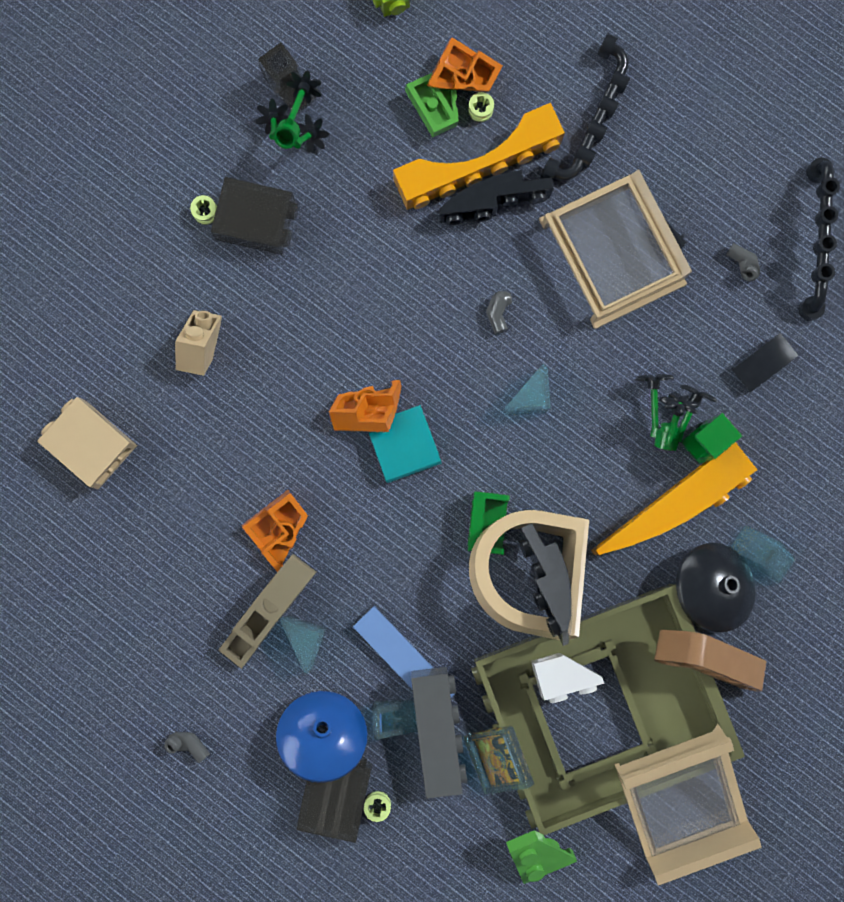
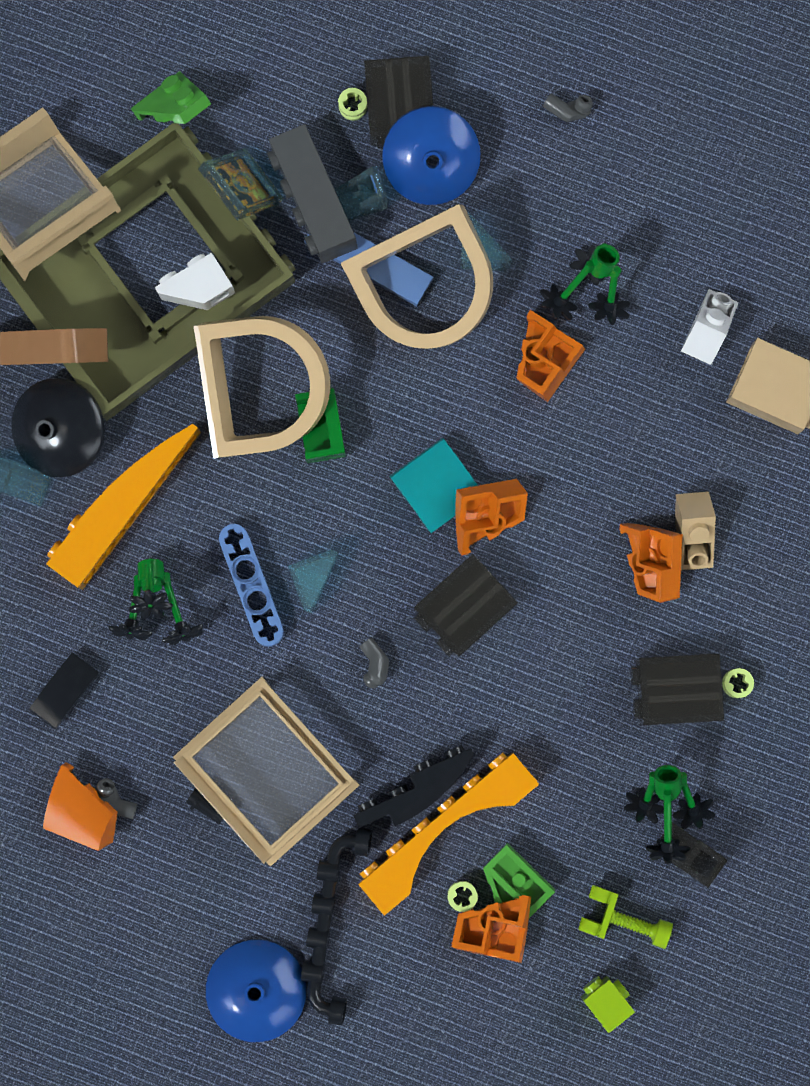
camera: 165 degrees right, 0 degrees up
(127, 511) = (710, 326): none -> white slope
(209, 592) = (596, 264): none -> plant
(240, 326) = (655, 561): none -> orange slope
(267, 610) = (527, 266): dark tan slope -> none
(331, 33) = (658, 932): none -> lime bar
(411, 334) = (464, 607): none -> clear smoke brick
(411, 610) = (357, 273): none -> tan window
(551, 581) = (234, 372): black slope -> none
(587, 405) = (256, 583): none -> medium blue beam
(663, 97) = (261, 966): none -> blue dish
(711, 438) = (104, 582): green panel -> none
(777, 258) = (79, 812): none -> orange slope
(821, 172) = (54, 933): black bar -> none

